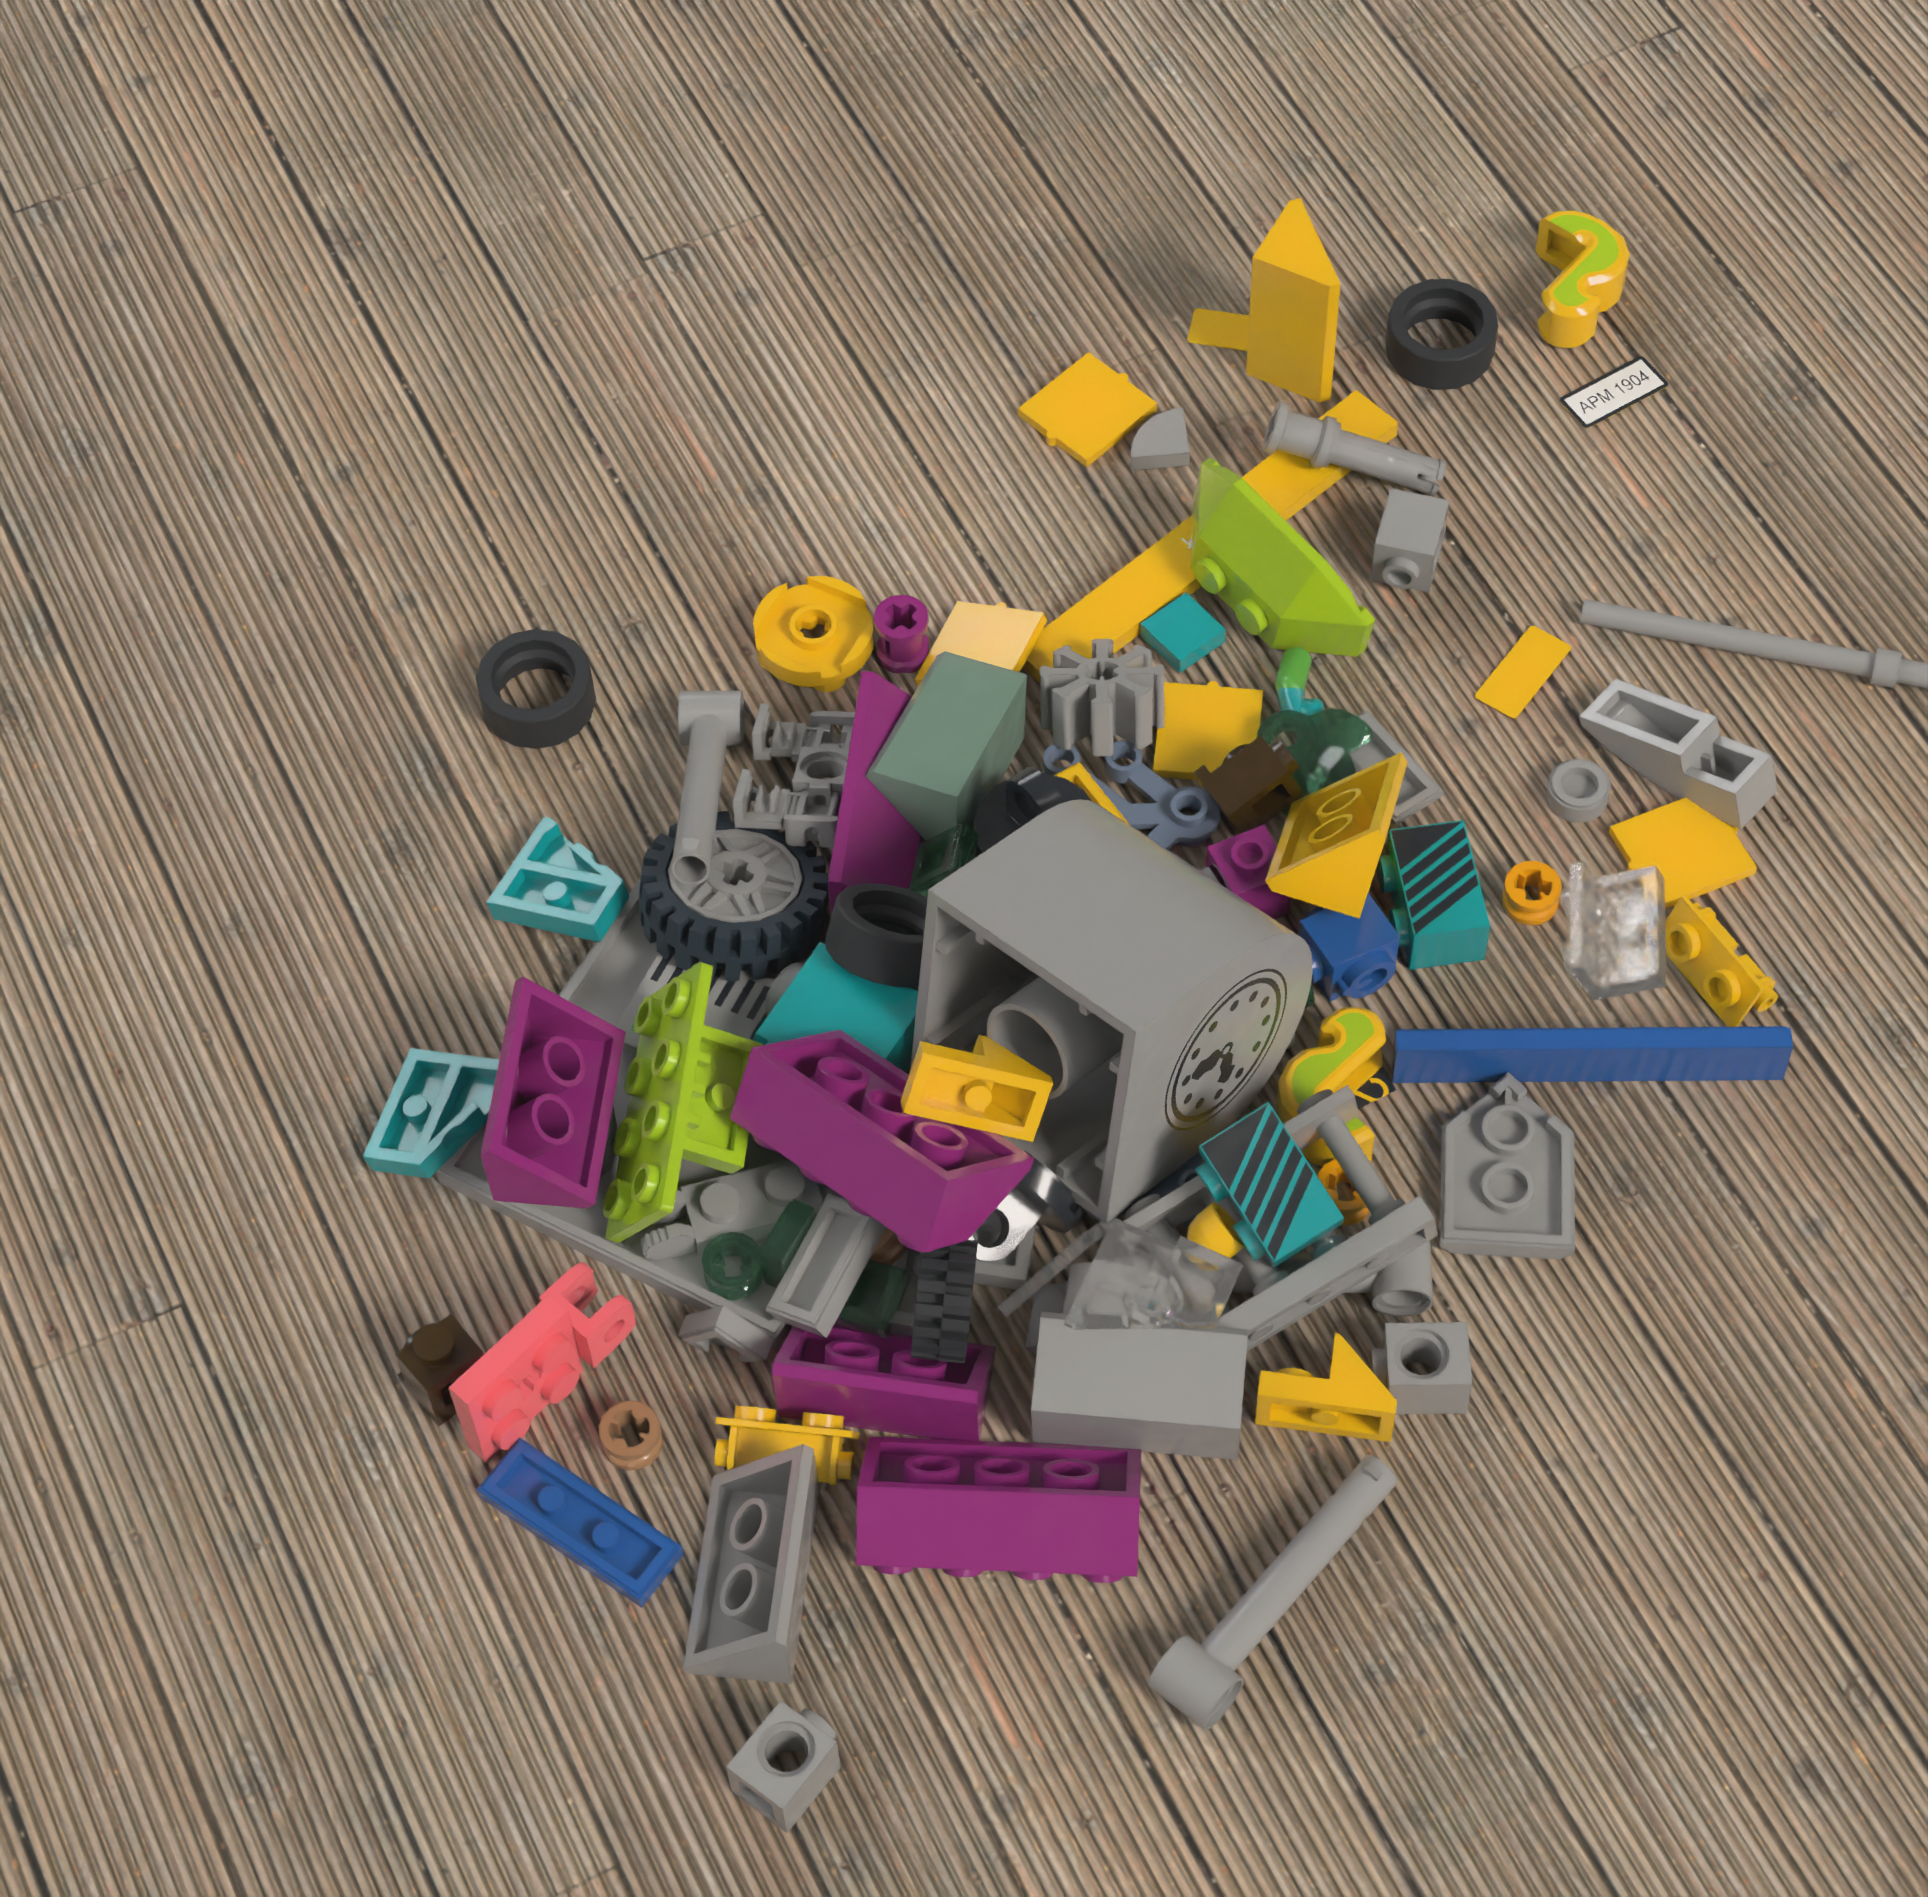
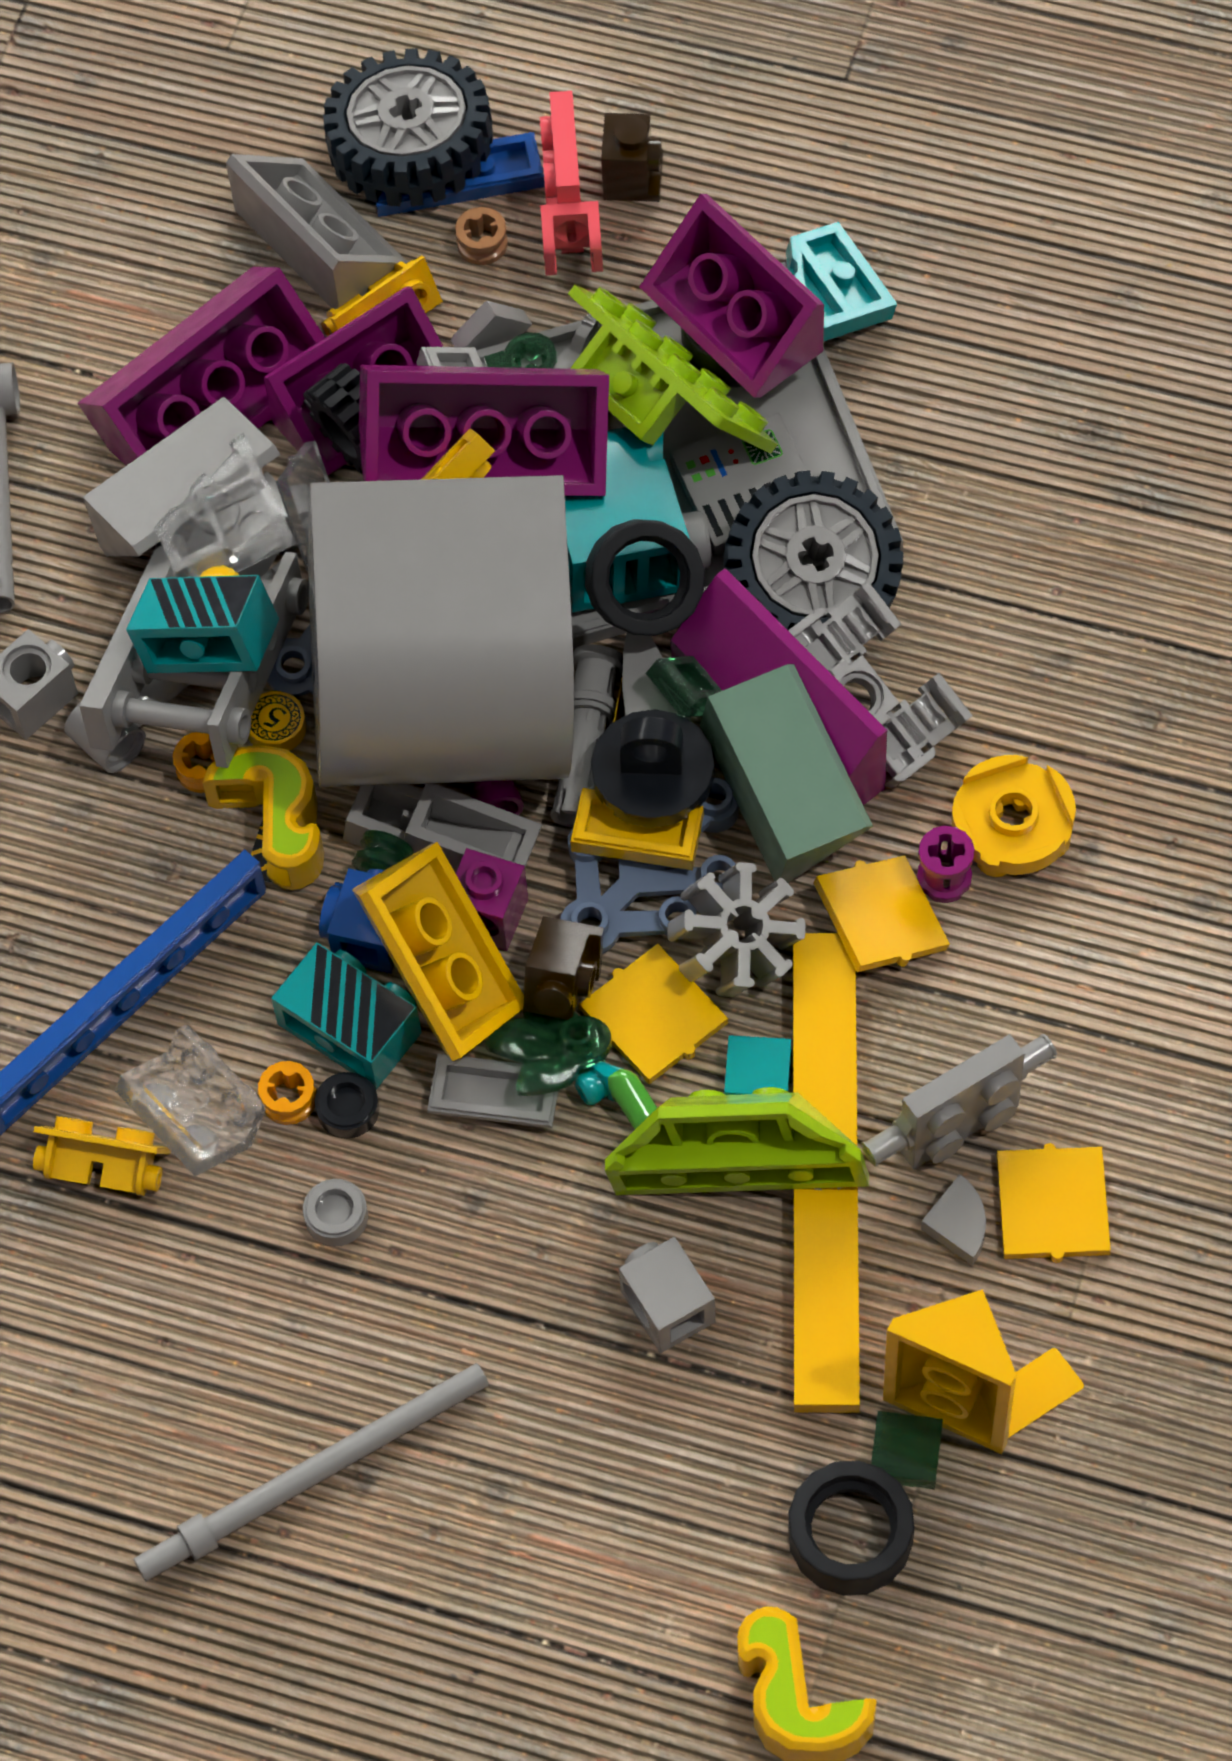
camera: 135 degrees right, 5 degrees up
(528, 652) = (1145, 557): black tyre -> none
(558, 888) = (943, 481): teal wing -> none
(595, 1623) = (408, 127): none -> wheel
(707, 725) = (993, 679): light grey piece -> none
(779, 1794) = (178, 148): light grey brick -> none
(1089, 464) = (960, 1102): none -> light grey plate
(1327, 443) = (813, 1304): light grey pin -> none
(1344, 1405) = (69, 607): yellow slope -> none
(1359, 354) = (908, 1448): none -> clear green tile
(1496, 850) = (347, 1105): none -> black tile
(1507, 1178) = (102, 868): light grey tile -> none
(1523, 671) = (479, 1285): yellow sticker -> none
(1613, 392) = (666, 1627): white sticker -> none
(1682, 751) = (284, 1301): light grey slope -> none
(1687, 847) = (215, 1238): yellow piece -> none

